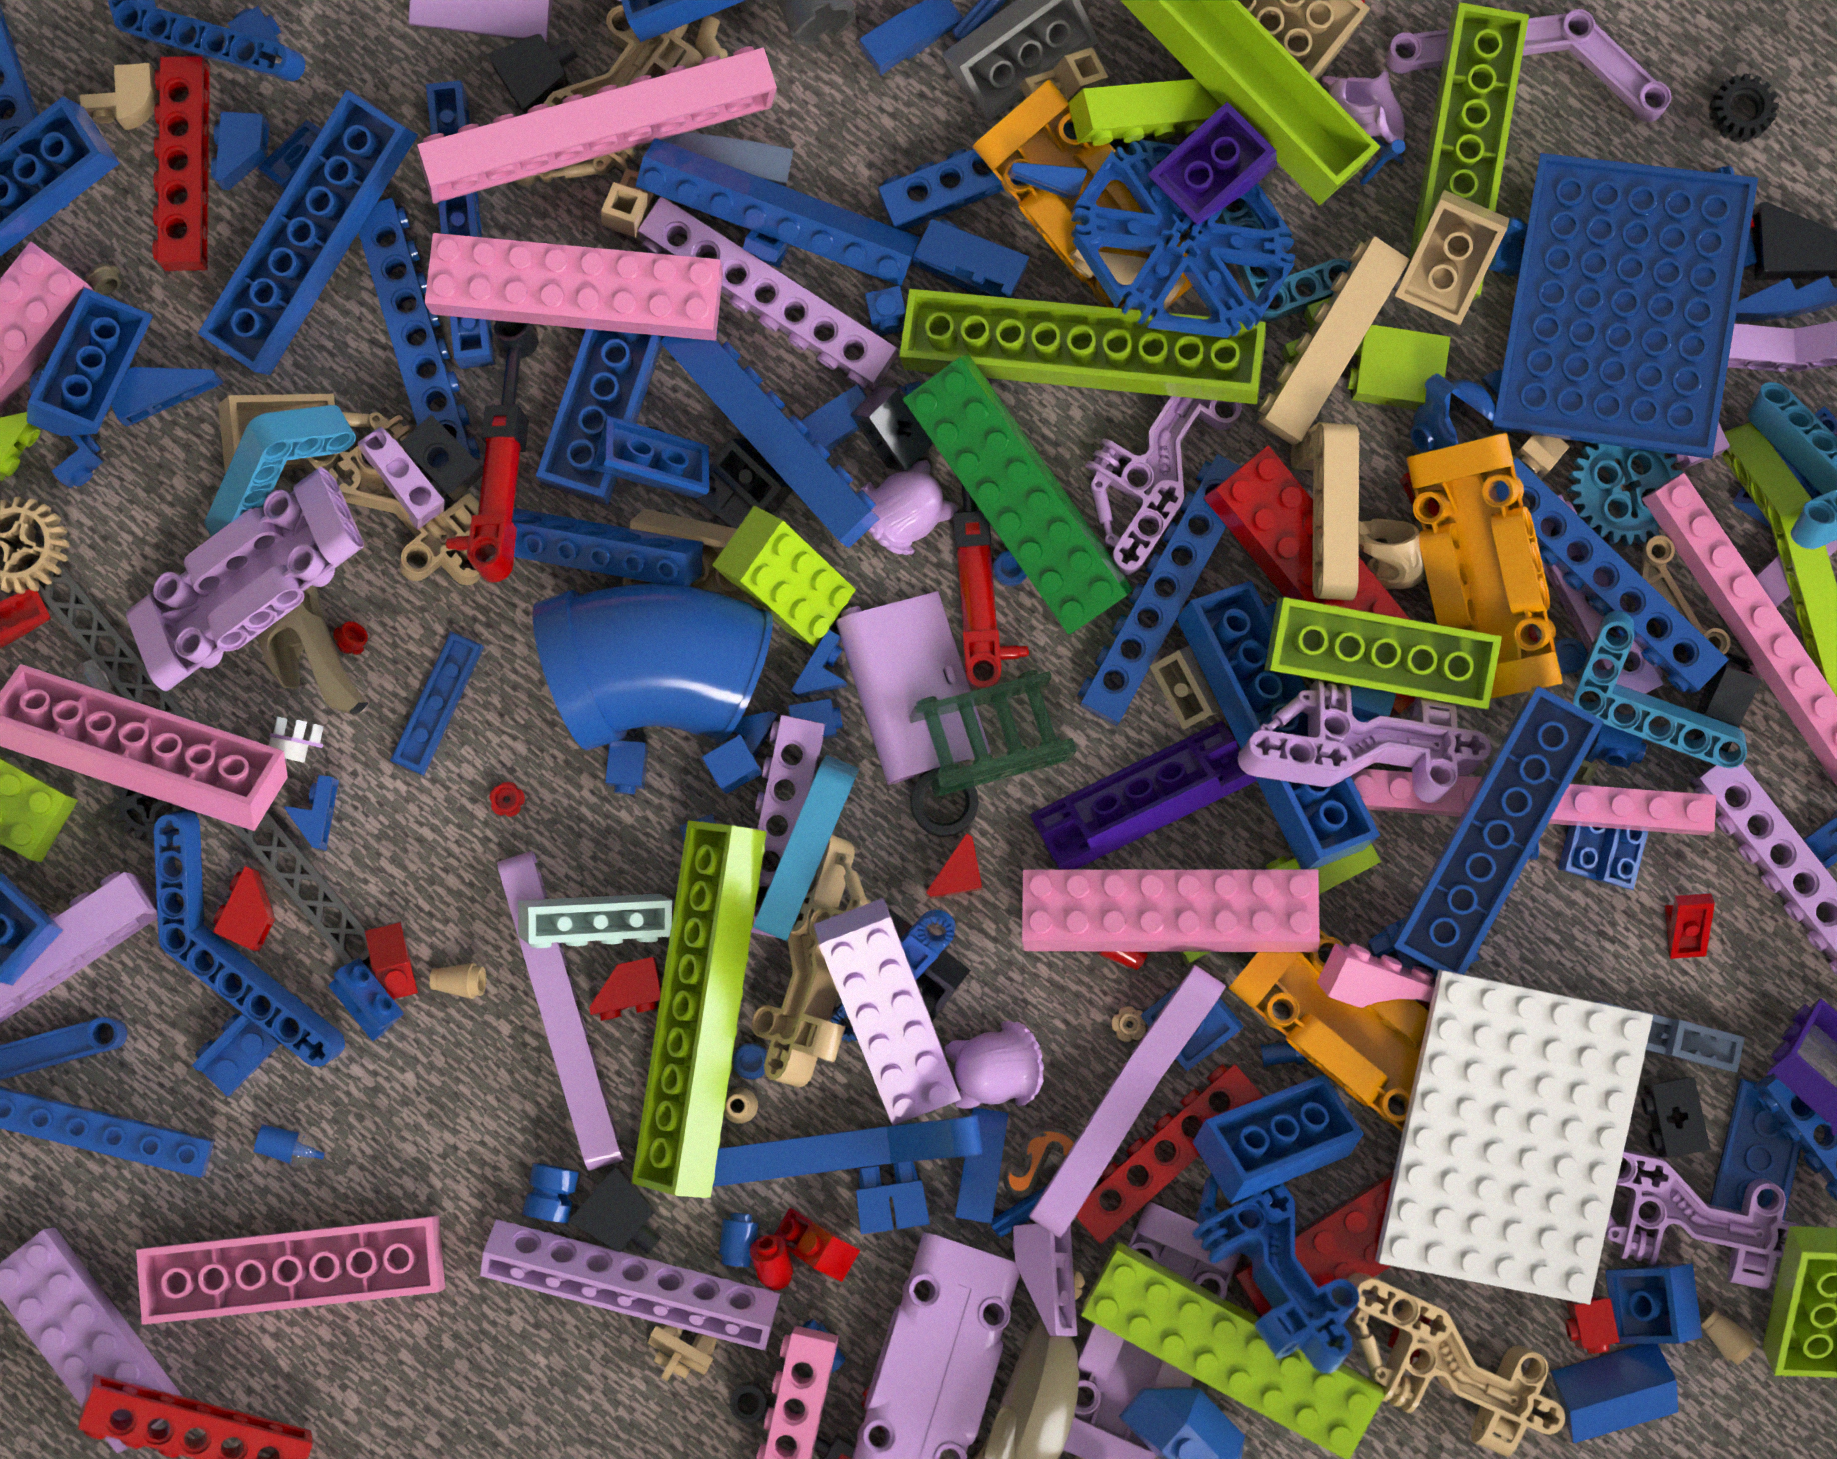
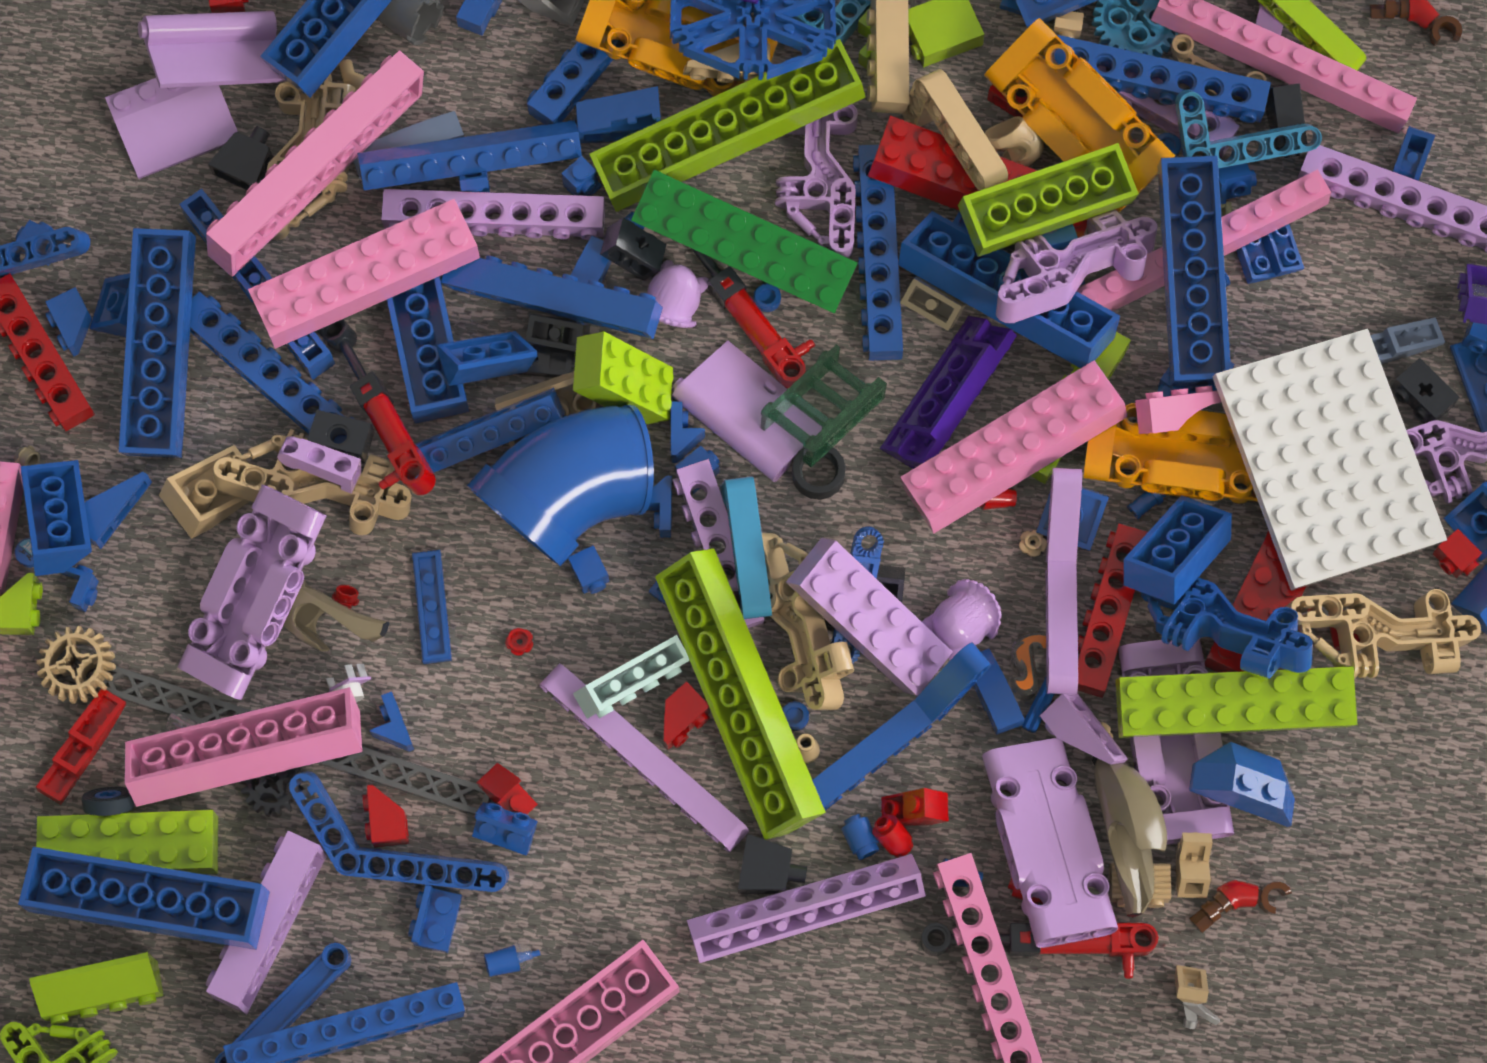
camera: 30 degrees left, 10 degrees down
(264, 452) = (220, 499): dark azure beam -> none
(460, 980) = (561, 778): tan cone -> none
(550, 1193) = (713, 880): blue wheel -> none
(626, 205) = (364, 208): tan brick -> none
(696, 1356) = (868, 935): tan hips -> none
(732, 765) = (664, 518): blue panel -> none
(874, 1199) = (949, 751): blue hips -> none
(959, 873) = (859, 509): red slope -> none
(1054, 179) = (643, 28): blue slope -> none
(1432, 421) = (985, 46): blue animal -> none
(1689, 925) = (1354, 267): red slope -> none

